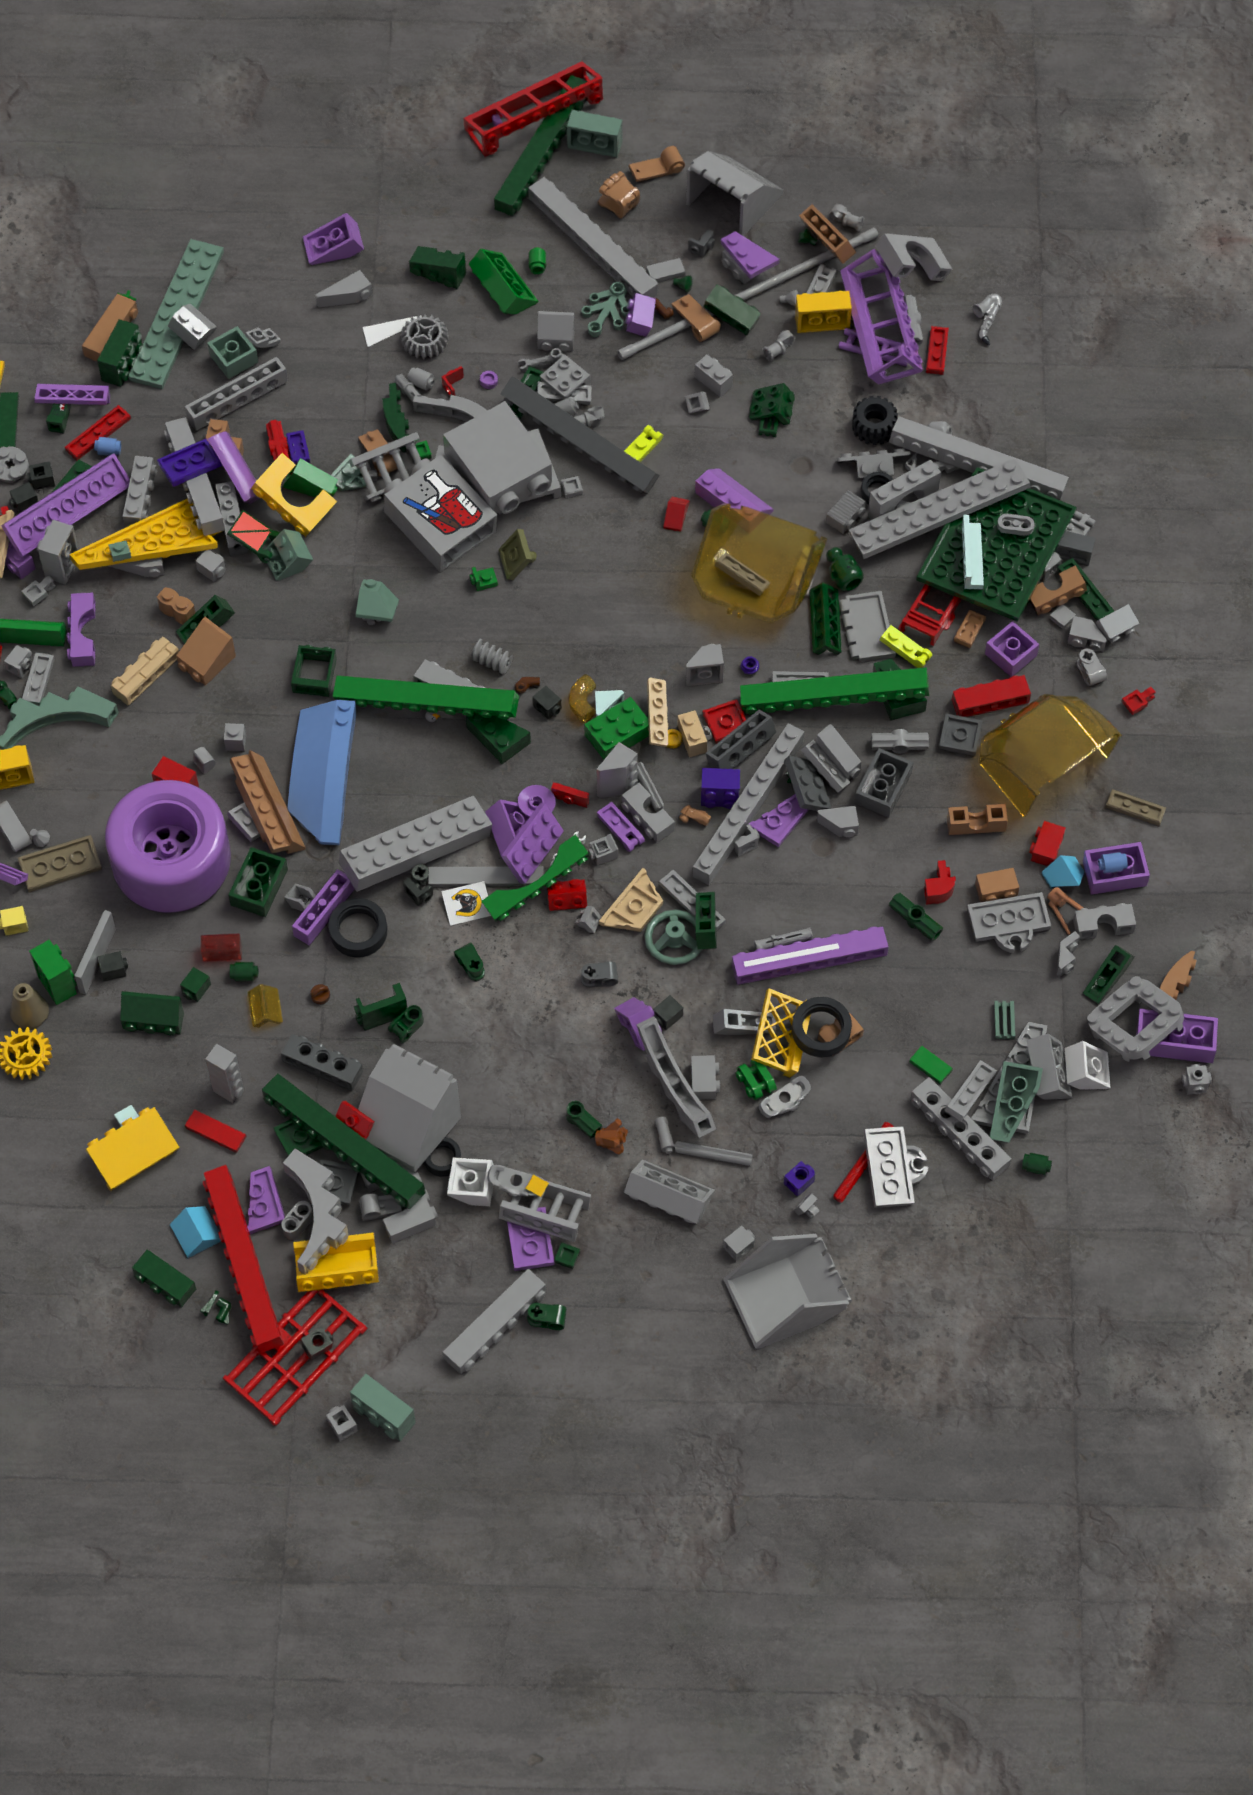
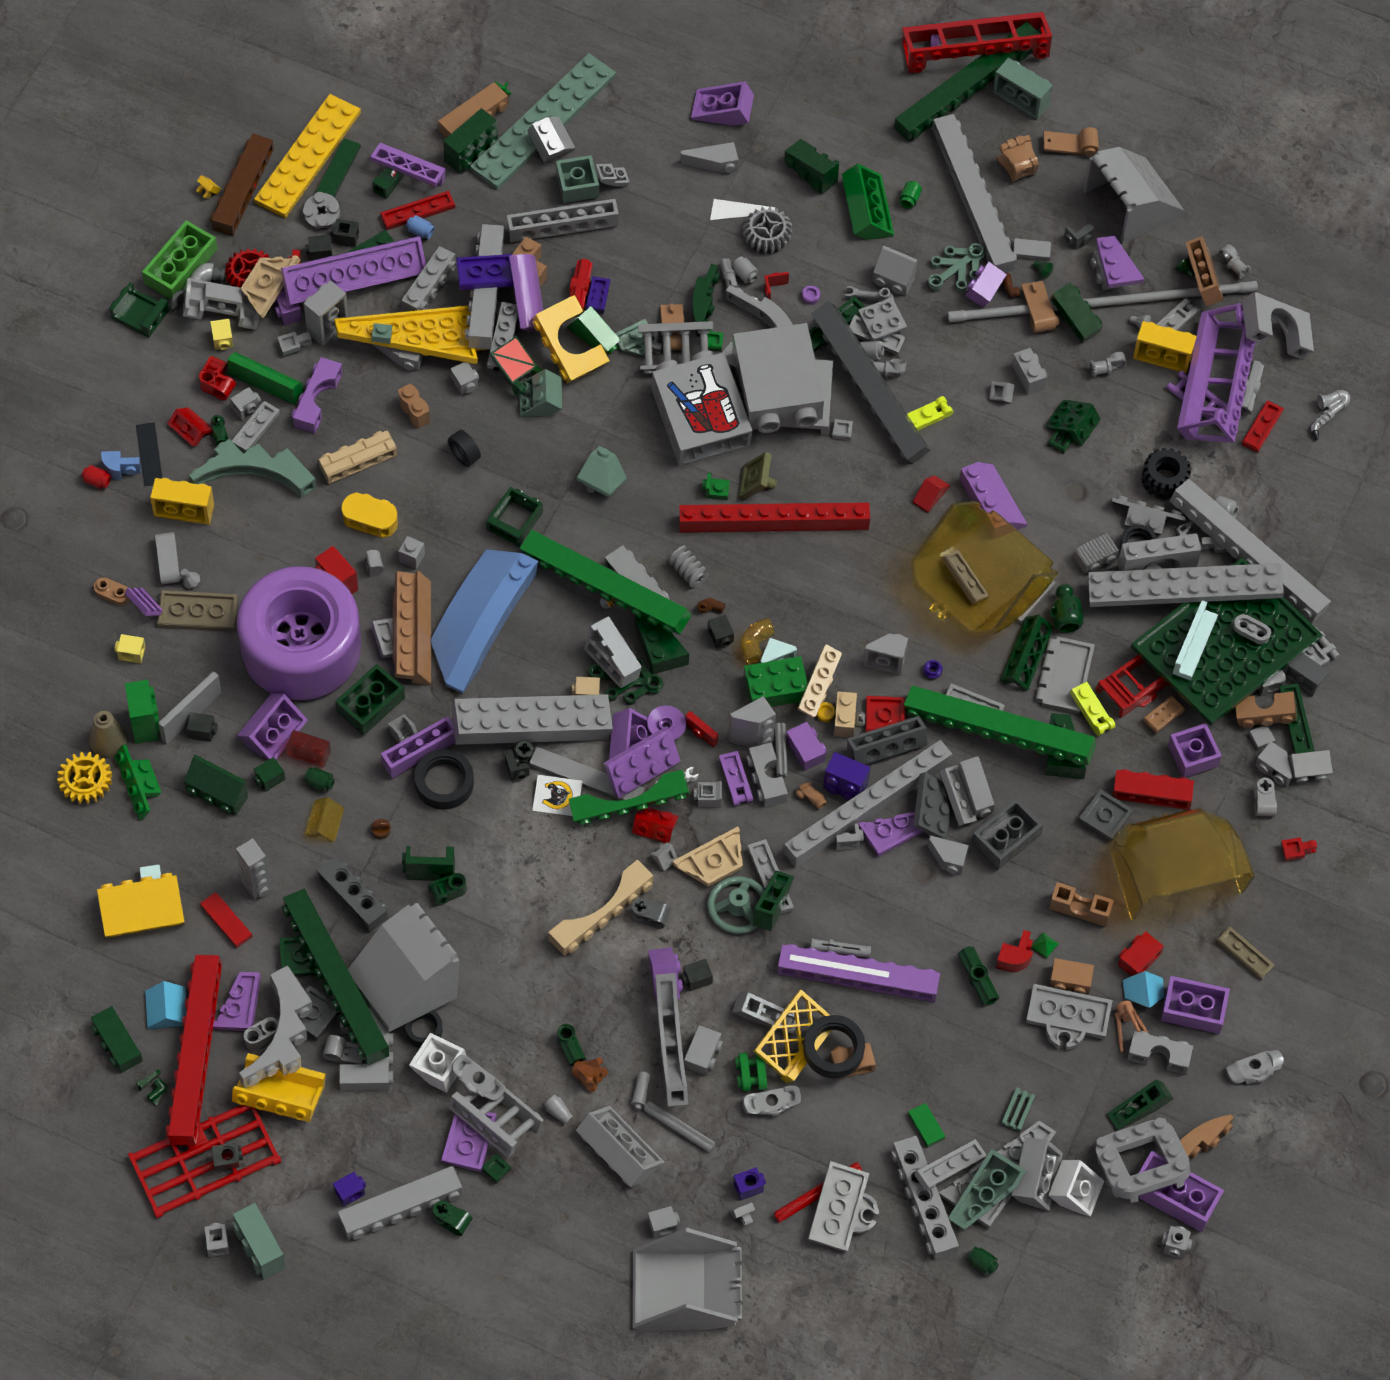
camera: 20 degrees right, 0 degrees up
(75, 1036) = (138, 779): none -> green bracket
(178, 940) = (272, 726): none -> medium lavender slope
(180, 718) = (370, 515): none -> yellow brick
(206, 652) = (421, 461): medium nougat slope -> none
(216, 610) = (434, 429): dark green slope -> none
(240, 626) = (464, 448): none -> black tyre
(354, 1119) = (354, 960): red plate -> none
(442, 1327) = (349, 1188): none -> dark purple brick
(449, 796) = (586, 686): none -> tan brick
(460, 757) = (612, 653): none -> light grey wedge
(469, 960) = (534, 852): dark green piece -> none
(483, 775) = (644, 682): none -> dark green plant
(537, 1019) = (571, 933): none -> tan arch
(537, 1185) = (495, 1090): yellow sticker -> none
(548, 585) = (774, 517): none -> red brick
(598, 1180) = (558, 1109): none -> light grey cone
(670, 774) = (806, 746): none -> medium lavender brick
(900, 741) = (1043, 799): light grey piece -> none
(960, 868) = (1044, 945): none -> green slope
(1065, 957) = (1104, 1076): light grey slope -> none
(1113, 862) = (1190, 998): medium blue brick -> none
(1181, 910) = (1242, 1072): none -> light grey piece

